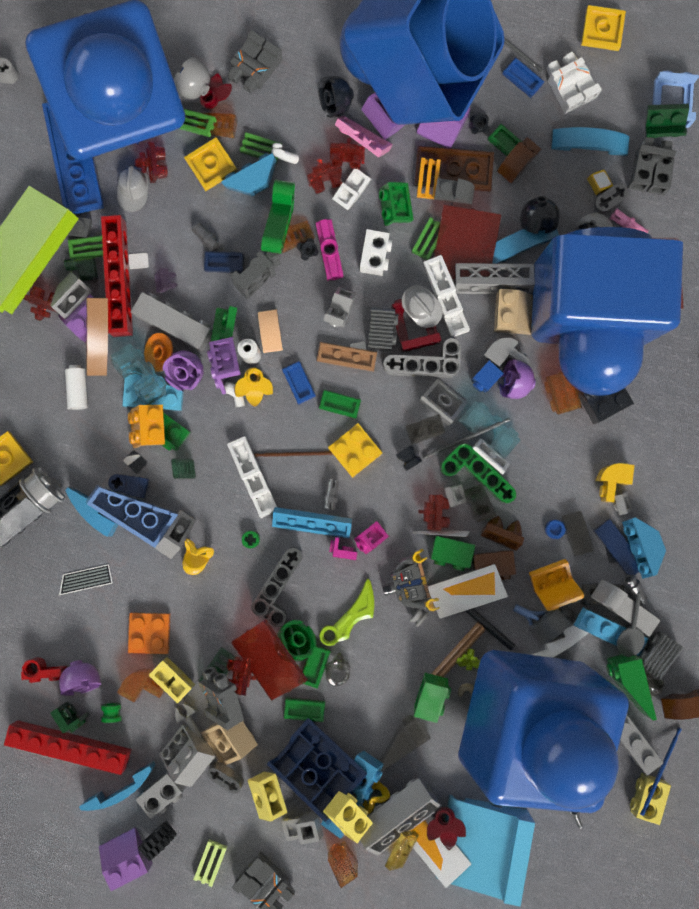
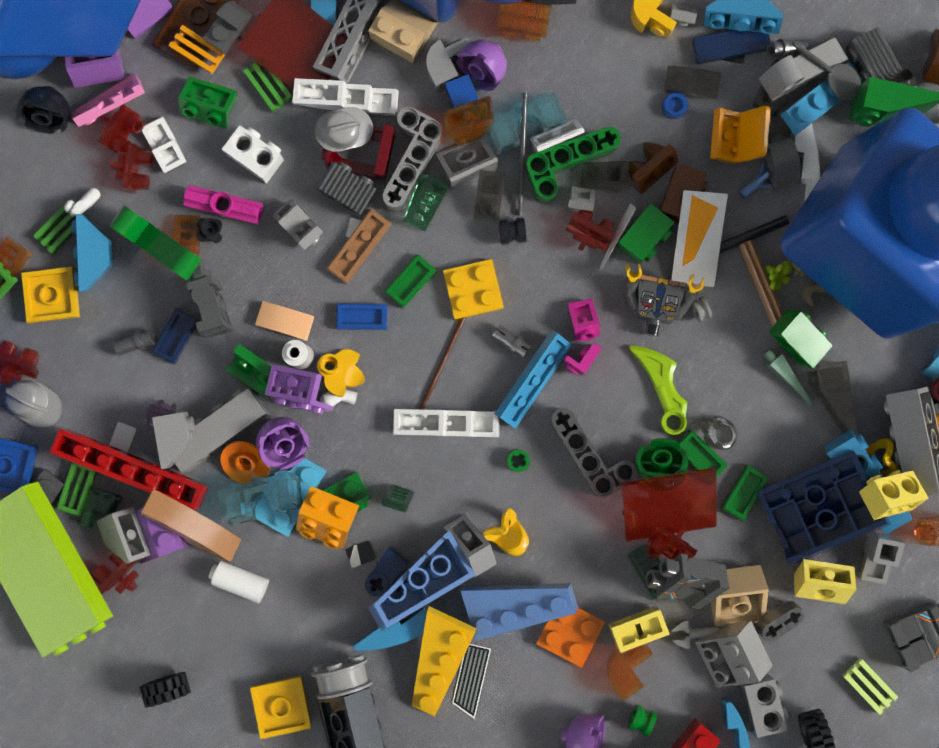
camera: 65 degrees left, 0 degrees up
(90, 550) = (441, 653): none -> yellow wing
(145, 584) = (514, 607): none -> medium blue wedge
(151, 293) = (172, 436): none -> light grey slope
(401, 380) = (432, 205): none -> clear green slope
(405, 692) = (780, 366): none -> sand green piece
(470, 389) = (469, 121): none -> clear orange slope

